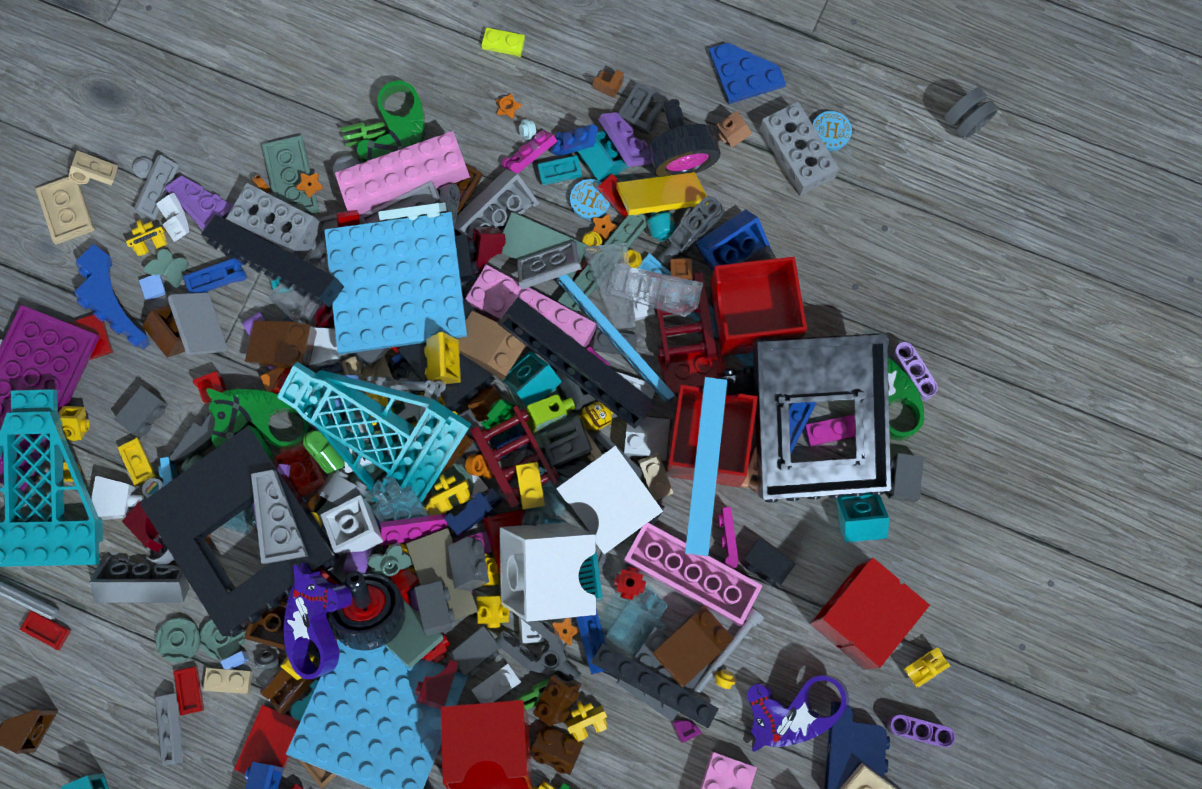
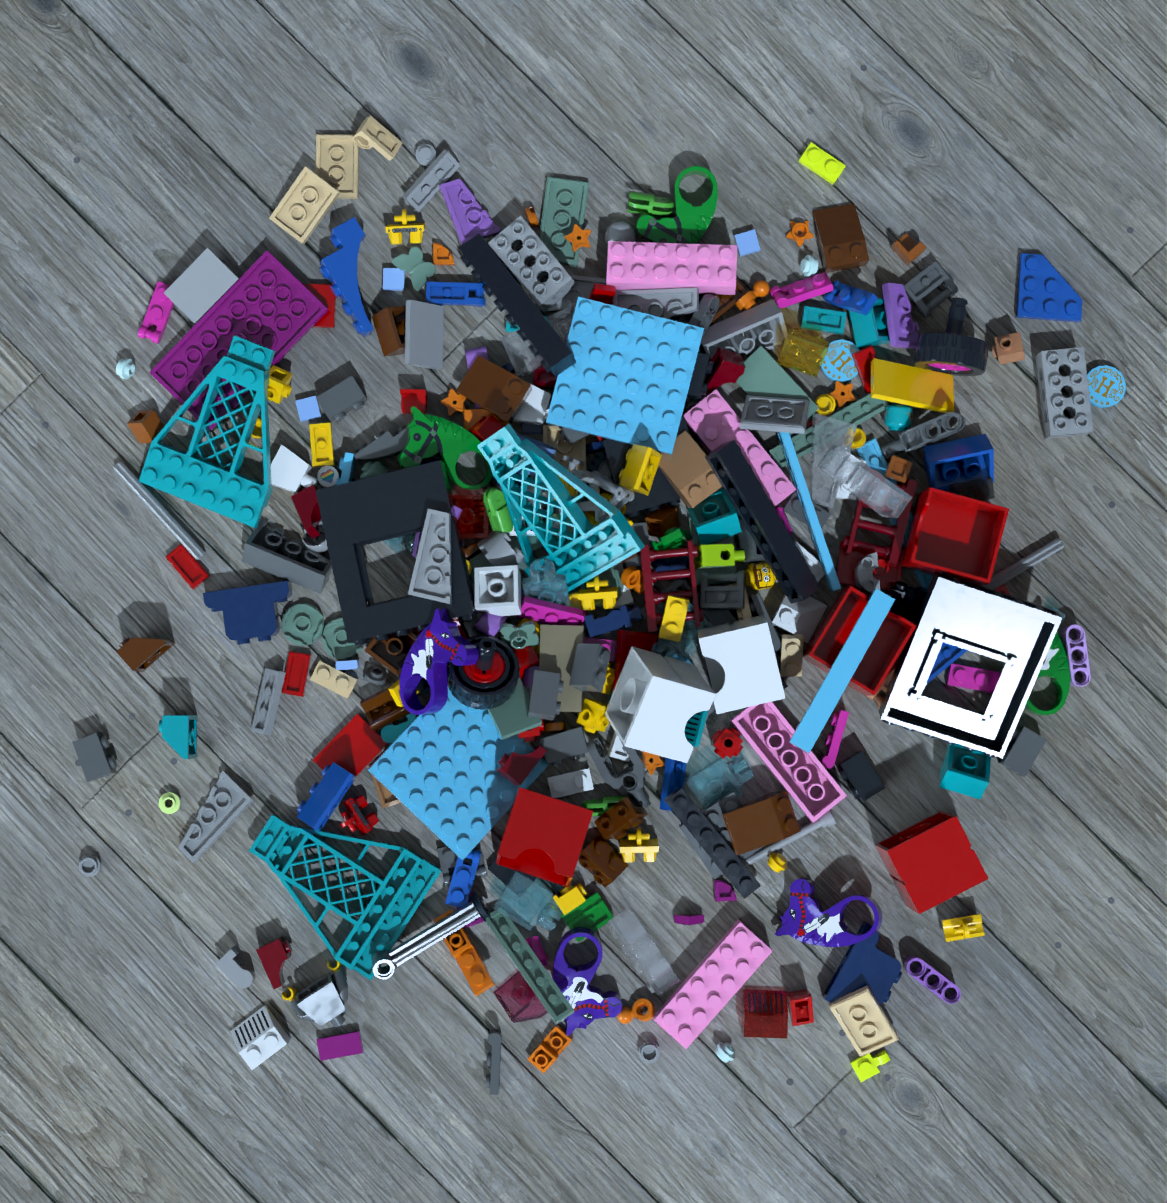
camera: 25 degrees right, 10 degrees up
(44, 252) = (304, 205): none -> tan plate
(113, 434) = (308, 408): none -> light blue tile
(120, 646) = (250, 610): none -> dark blue brick
(176, 220) = (438, 224): white slope -> none
(190, 249) = (442, 255): none -> orange tile
(250, 380) = (448, 402): none -> orange plate
(412, 213) = (668, 313): light aqua plate -> none
(459, 637) = (552, 727): none -> reddish brown tile
(464, 132) = (747, 243): none -> light blue tile
(484, 178) = (760, 289): none -> orange plate
(546, 97) = (840, 238): none -> reddish brown slope
(552, 203) = (803, 352): none -> clear yellow plate
(664, 771) = (688, 919): none -> magenta tile
(689, 373) = (863, 574): none -> light grey cylinder
(833, 306) = (1025, 563): none -> light grey axle

